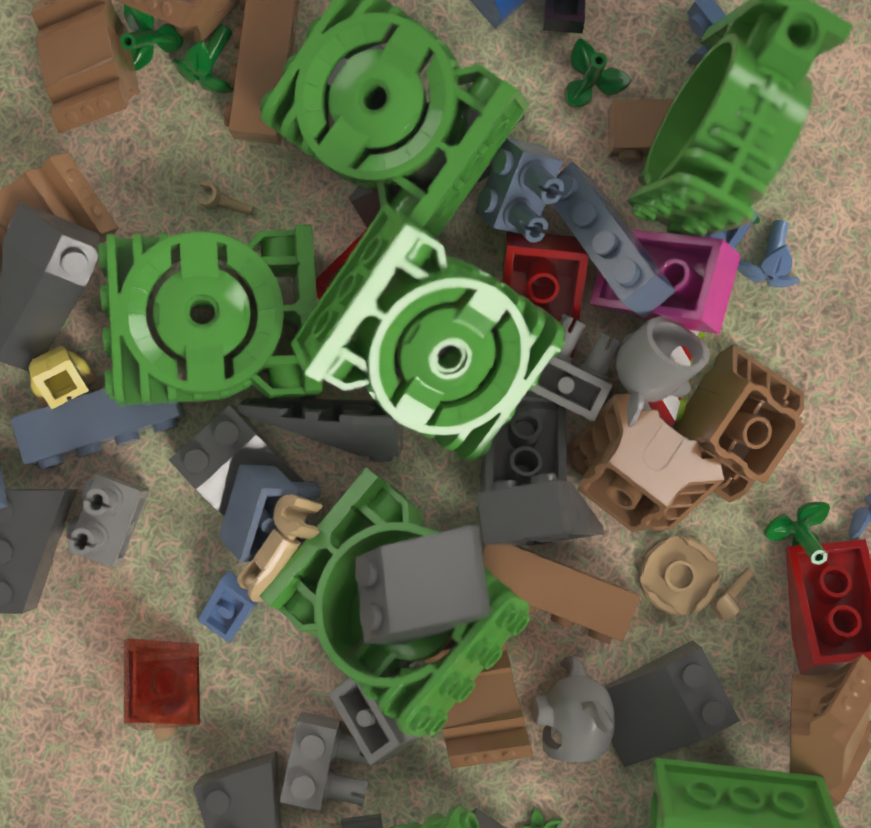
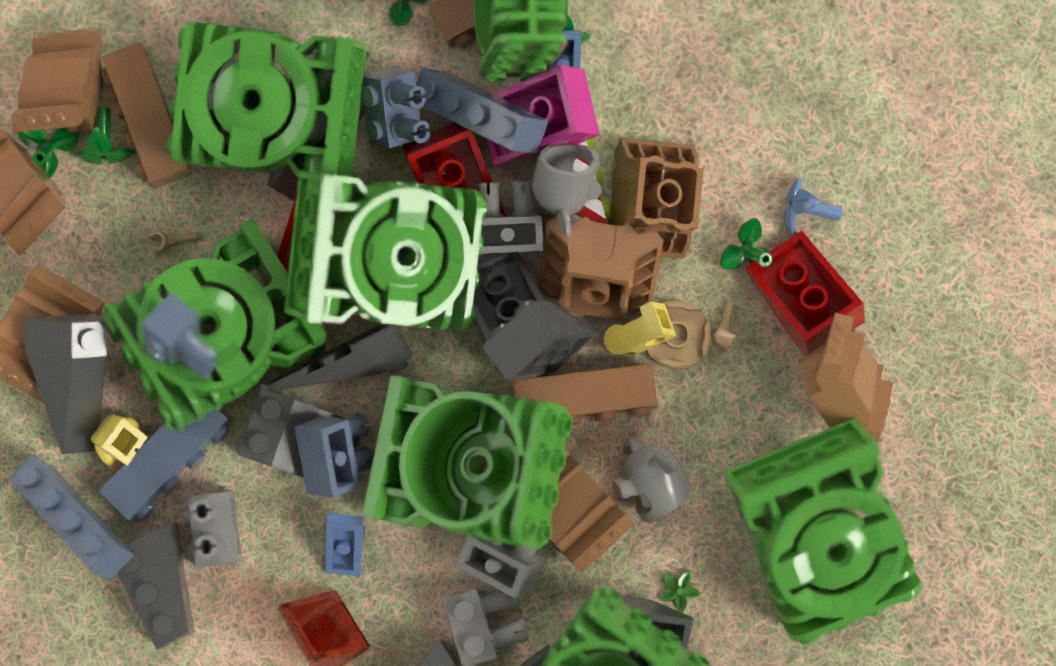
camera: 25 degrees left, 5 degrees down
(155, 306) = (172, 336): none -> sand blue brick
(280, 545) = (357, 468): tan piece -> none
(421, 586) = (475, 432): dark grey slope -> none
(645, 558) = (641, 333): none -> light yellow leg
(668, 705) = (719, 436): dark grey slope -> none
(776, 262) = (616, 61): medium blue plant -> none

